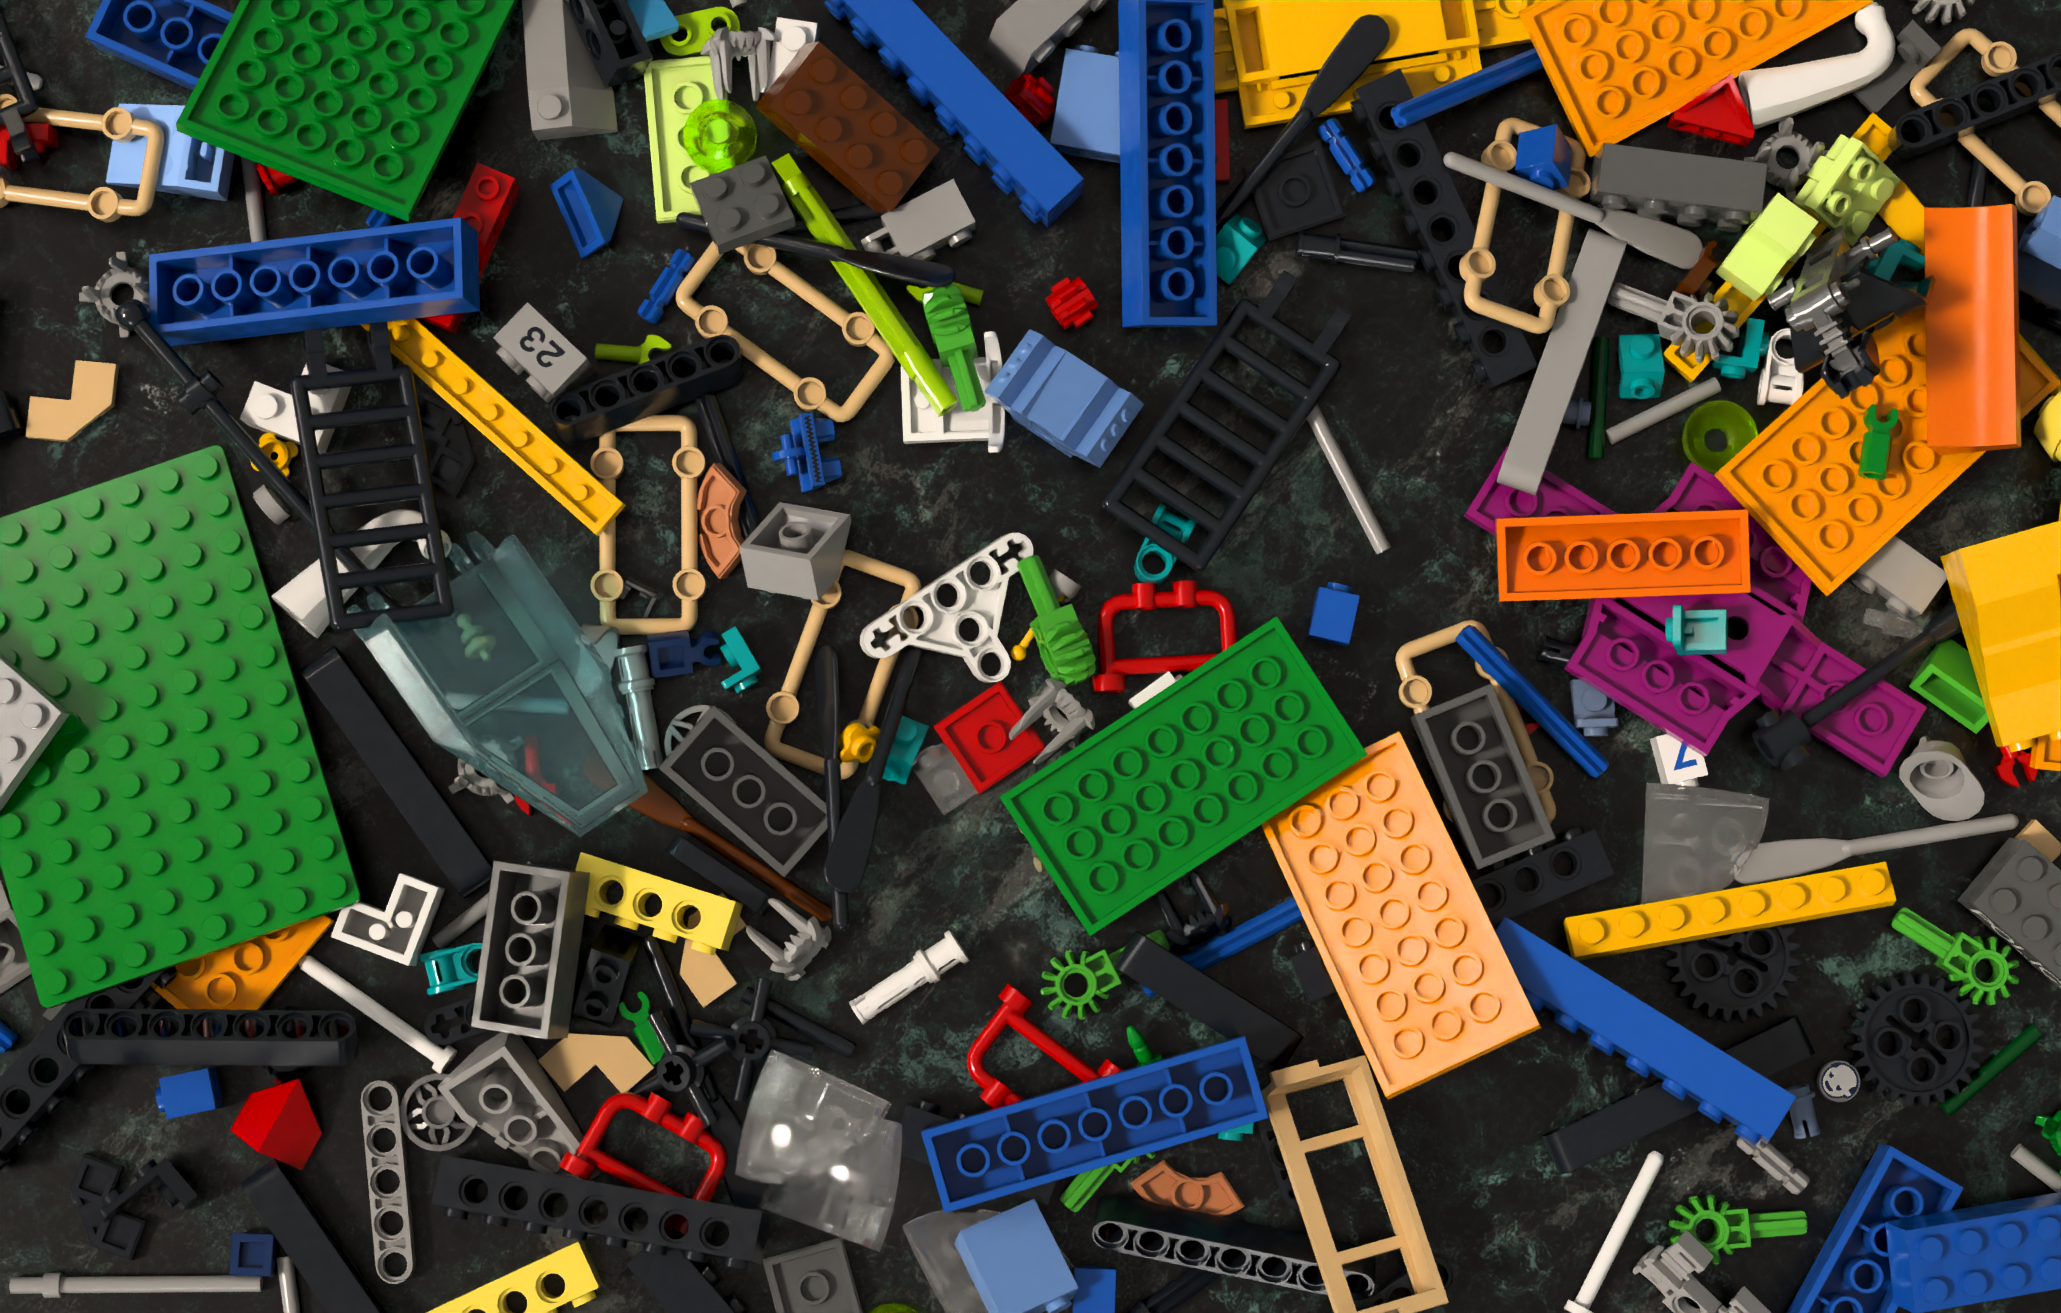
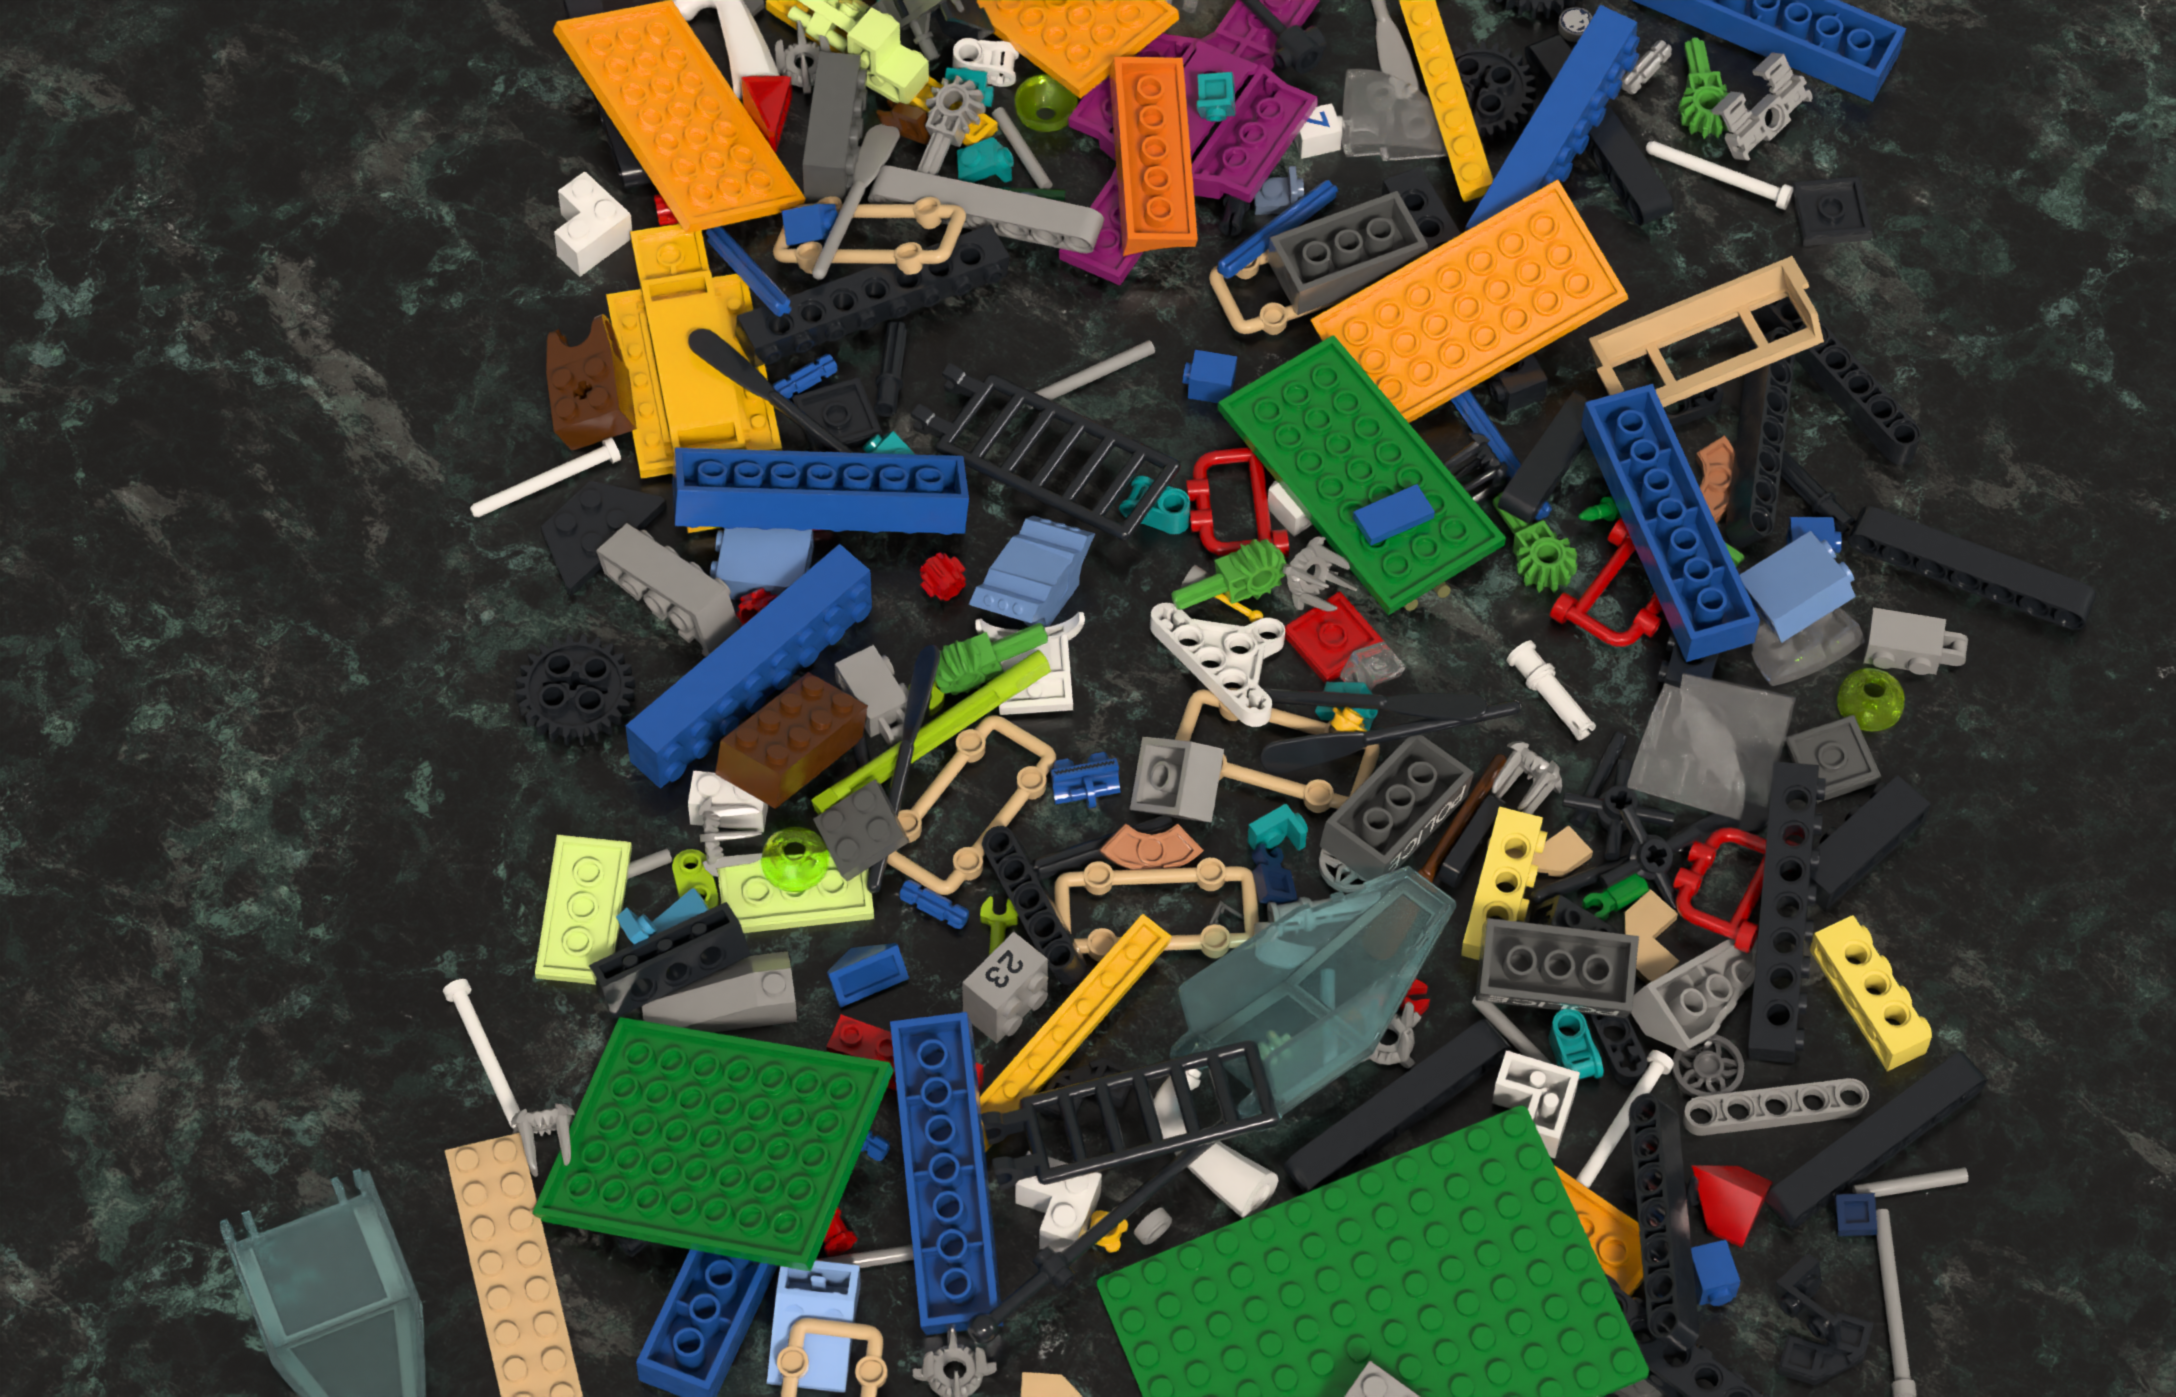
camera: 90 degrees left, 25 degrees down
(1116, 807) = (1393, 514): none -> blue tile

